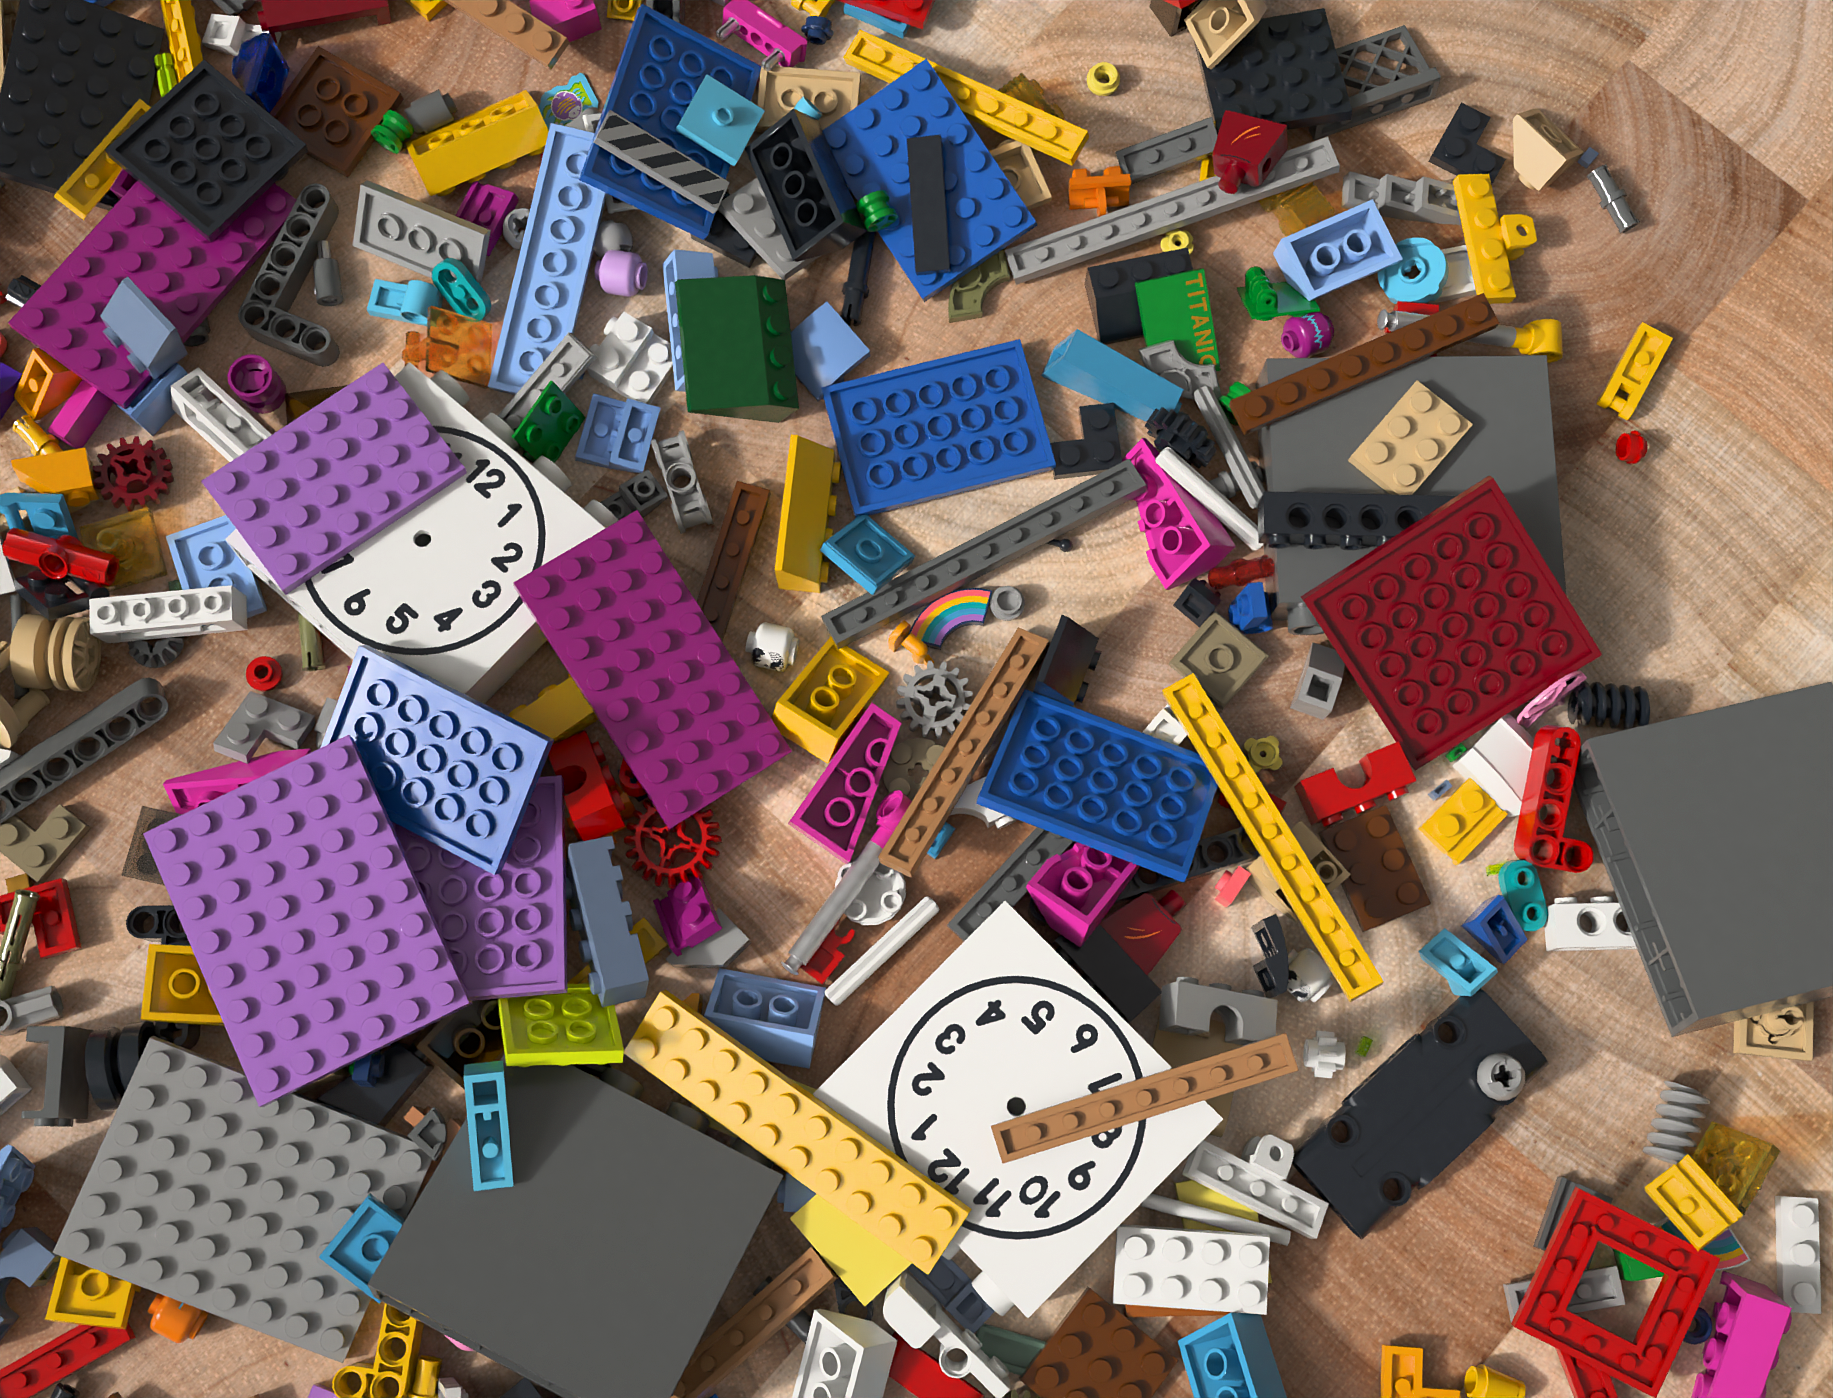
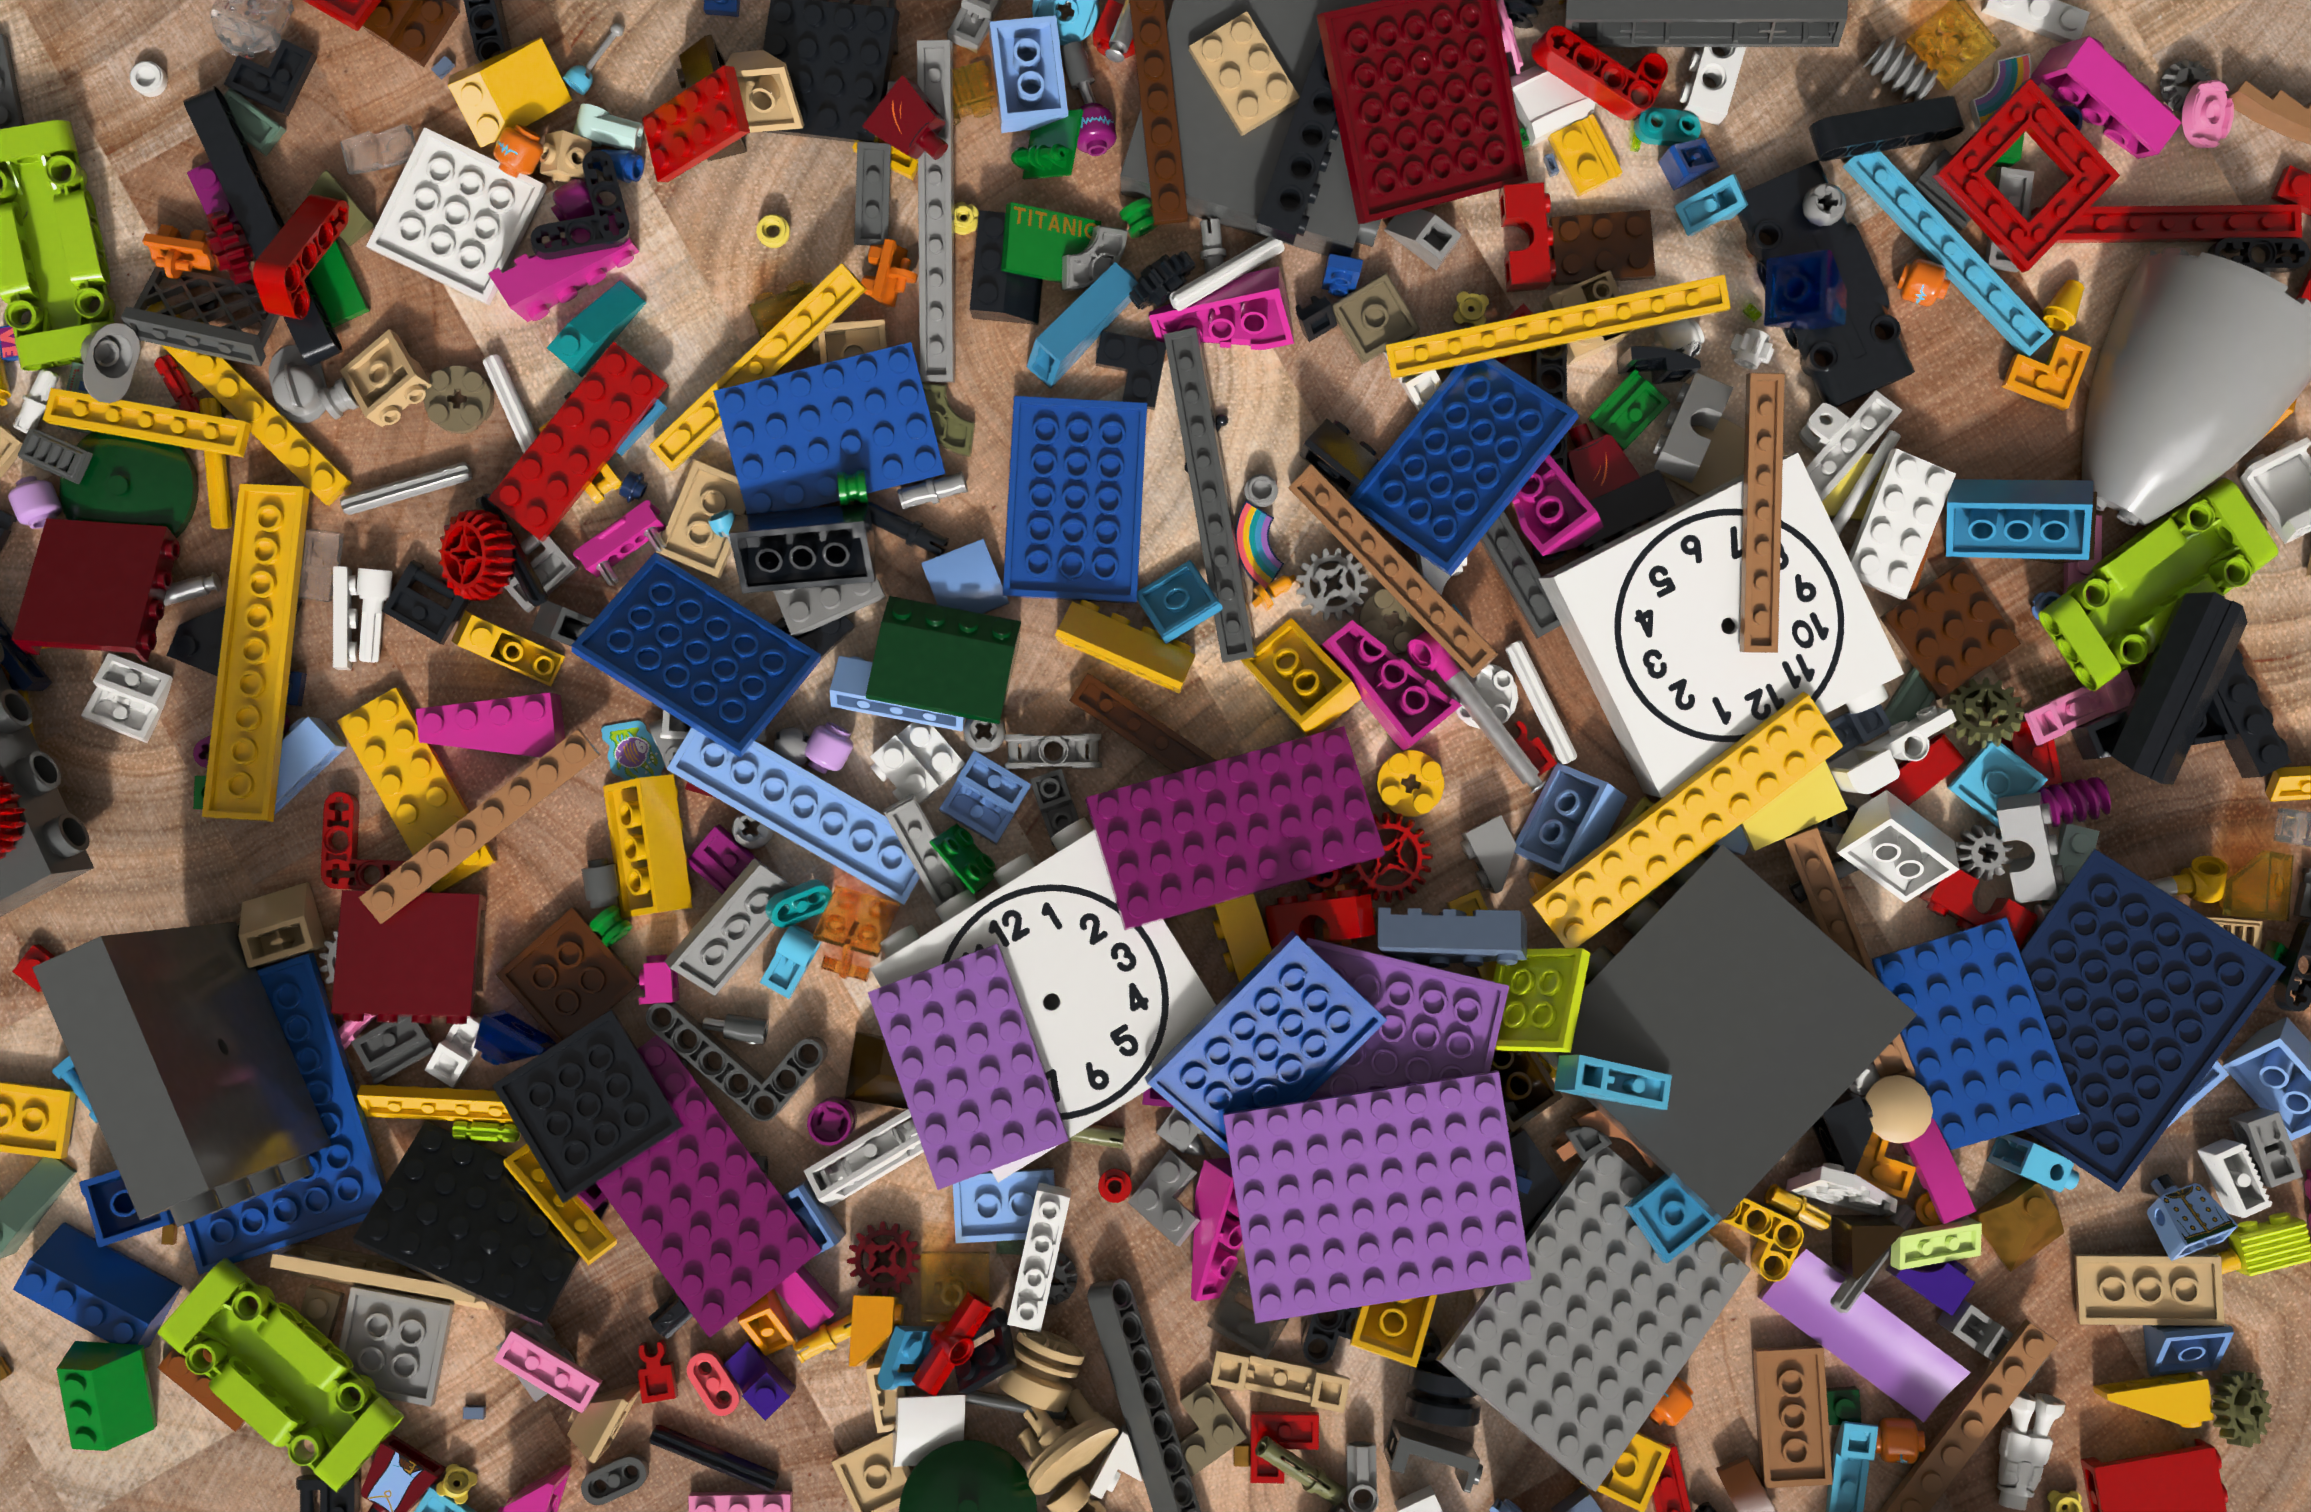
camera: 75 degrees left, 10 degrees up
(107, 896) = (1280, 1378): none -> tan slope
(142, 330) = (763, 1211): sand blue slope -> none
(345, 189) = (658, 981): none -> dark pink brick
(661, 162) = (742, 675): light grey tile -> none
(685, 422) = (984, 745): none -> light grey piece
(687, 915) = (1462, 863): magenta plate -> none
(720, 120) = (708, 607): medium azure plate -> none
(741, 828) = (1426, 772): none -> yellow plate
(772, 646) = (1236, 715): white head -> none
(903, 294) = (932, 490): none -> light grey pin
(928, 205) = (861, 436): black tile -> none
(1215, 946) = (1629, 409): none -> green plate
(1229, 445) = (1183, 238): light grey axle -> none
(1230, 885) = (1581, 378): coral plate -> none
(1241, 572) = (1305, 269): clear red pin -> none
(1361, 304) = (1078, 69): none -> dark grey piece
(1400, 1084) = (1804, 292): none -> clear blue slope
(1461, 1218) = (1923, 282): none -> orange head
(1505, 1238) = (1947, 247): none -> medium azure plate
(1606, 1120) = (1886, 128): none -> black beam
(1693, 1202) = (1978, 82): yellow plate -> none

